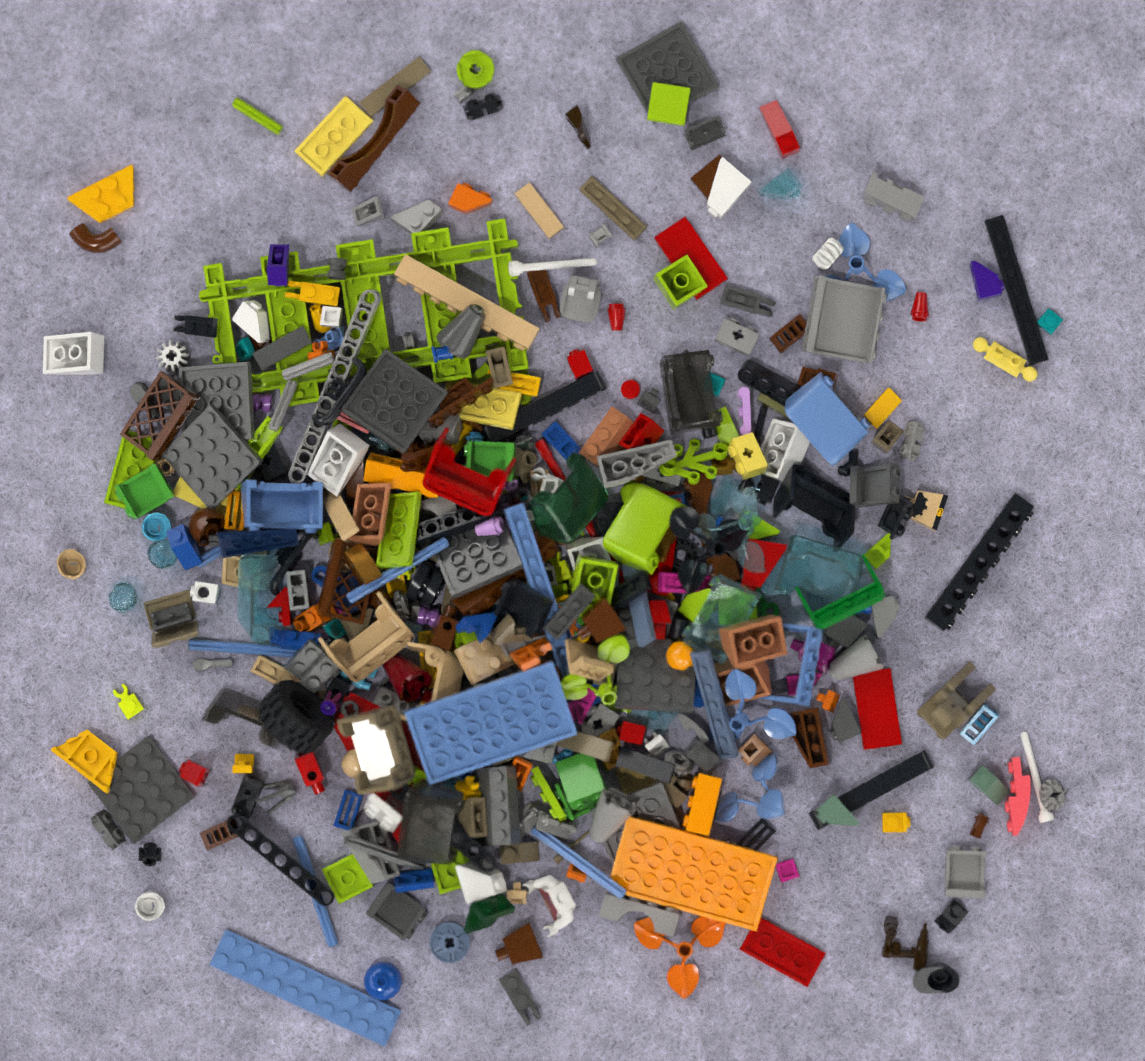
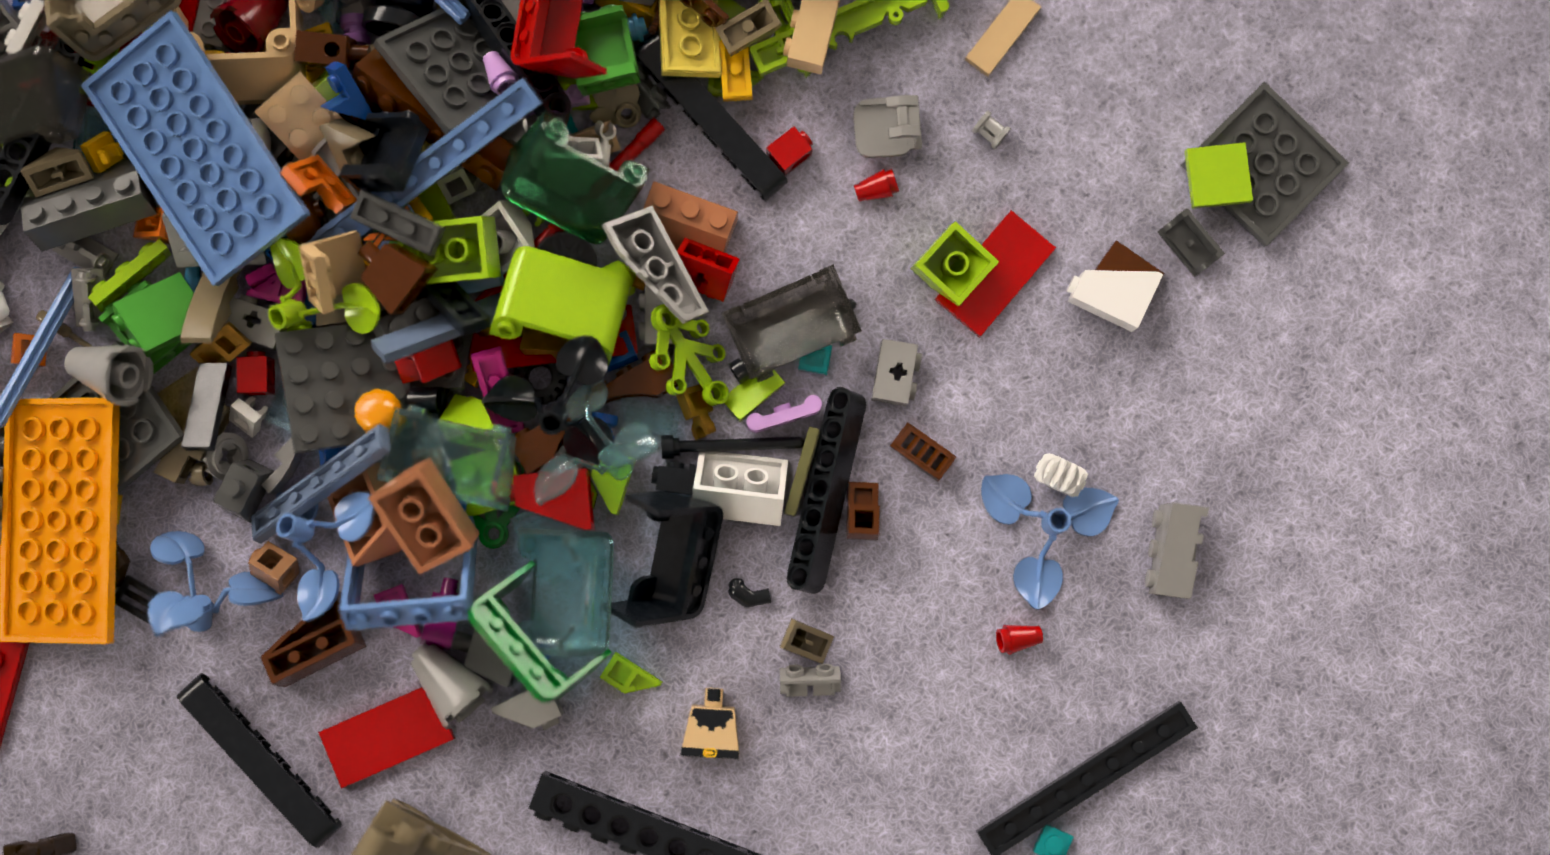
camera: 65 degrees right, 0 degrees up
(516, 268) = (906, 15): white piece -> none
(519, 853) = (38, 267): dark tan slope -> none
(543, 292) = (883, 70): reddish brown hinge -> none
(560, 440) = (669, 155): blue slope -> none
(561, 569) = (477, 202): neon yellow plate -> none
(576, 120) = (1148, 52): dark brown slope -> none
(613, 208) = (1037, 139): dark tan tile -> none
(630, 389) = (773, 237): red tile -> none
(649, 401) = (763, 268): dark grey tile -> none
(702, 804) = (165, 507): light orange brick -> none
(744, 447) = (732, 431): light yellow brick -> none
(745, 301) = (954, 371): dark grey hinge -> none
(780, 129) = (1228, 353): slope -> none
(782, 187) = (1142, 379): clear light blue slope -> none
(787, 870) = (108, 663): dark pink tile -> none
(825, 419) = (802, 537): medium blue windscreen -> none
(829, 701) = (379, 659): orange tile -> none
(835, 813) = (199, 716): sand green slope -> none
(843, 319) = (966, 525): light grey panel -> none
(844, 723) = (348, 691): dark grey slope -> none
(875, 485) = (724, 641): dark grey panel -> none
(882, 408) = (848, 621): yellow slope -> none
(895, 822) = (219, 810): yellow bracket -> none
(896, 517) = (687, 686): black bracket -> none
(985, 281) = (1086, 728): dark purple slope -> none
(1005, 359) = (975, 790): light yellow plate -> none

